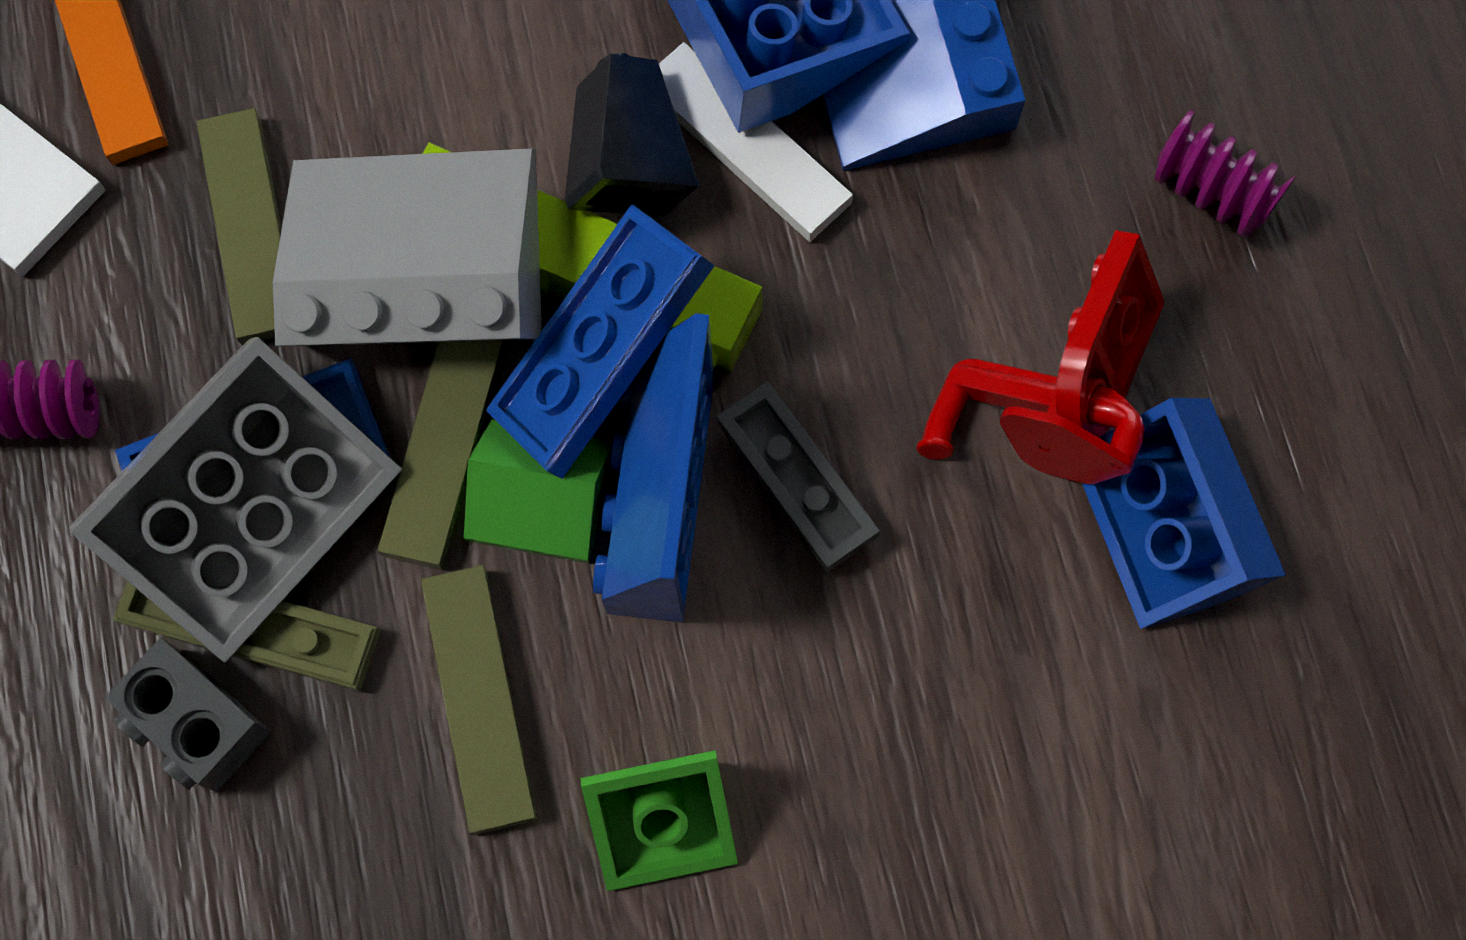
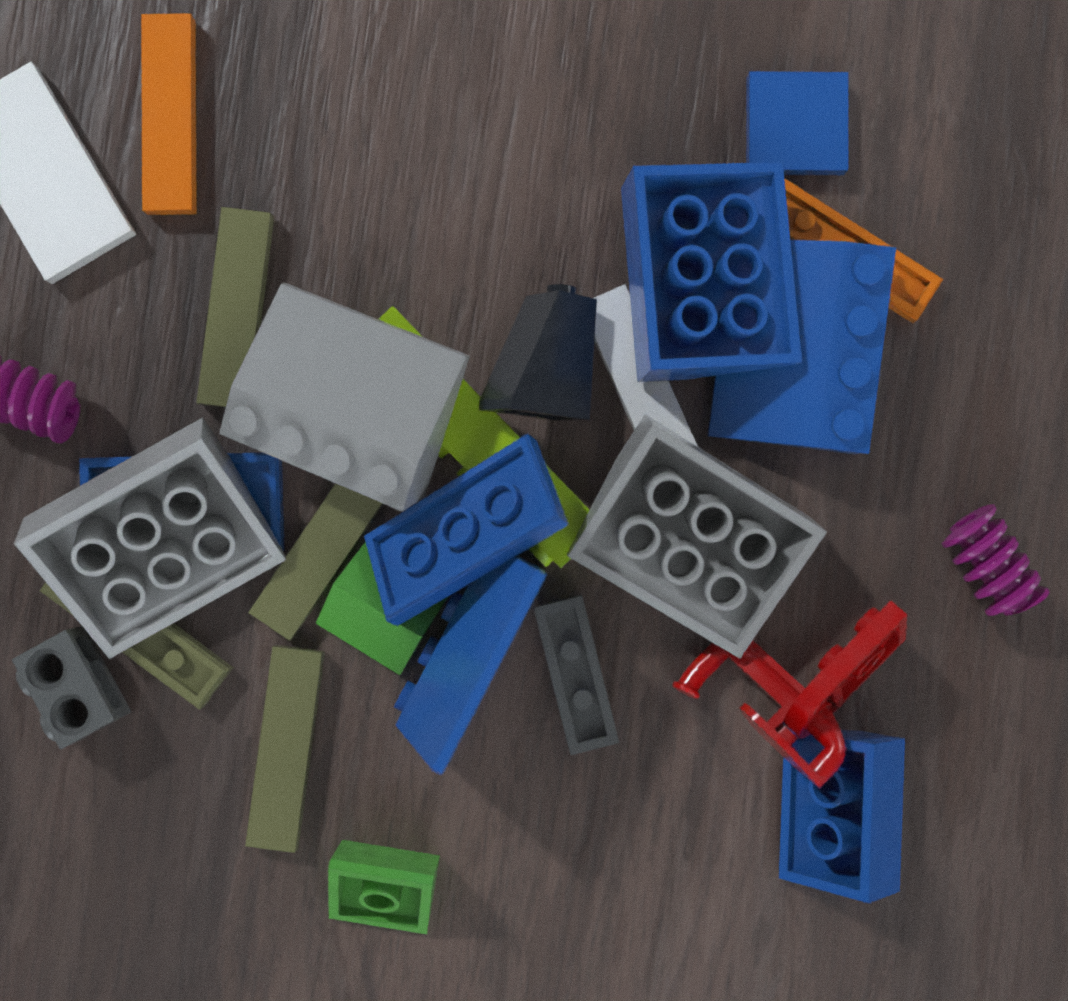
camera: 15 degrees right, 15 degrees up
(870, 257) = (694, 537): none -> light grey slope

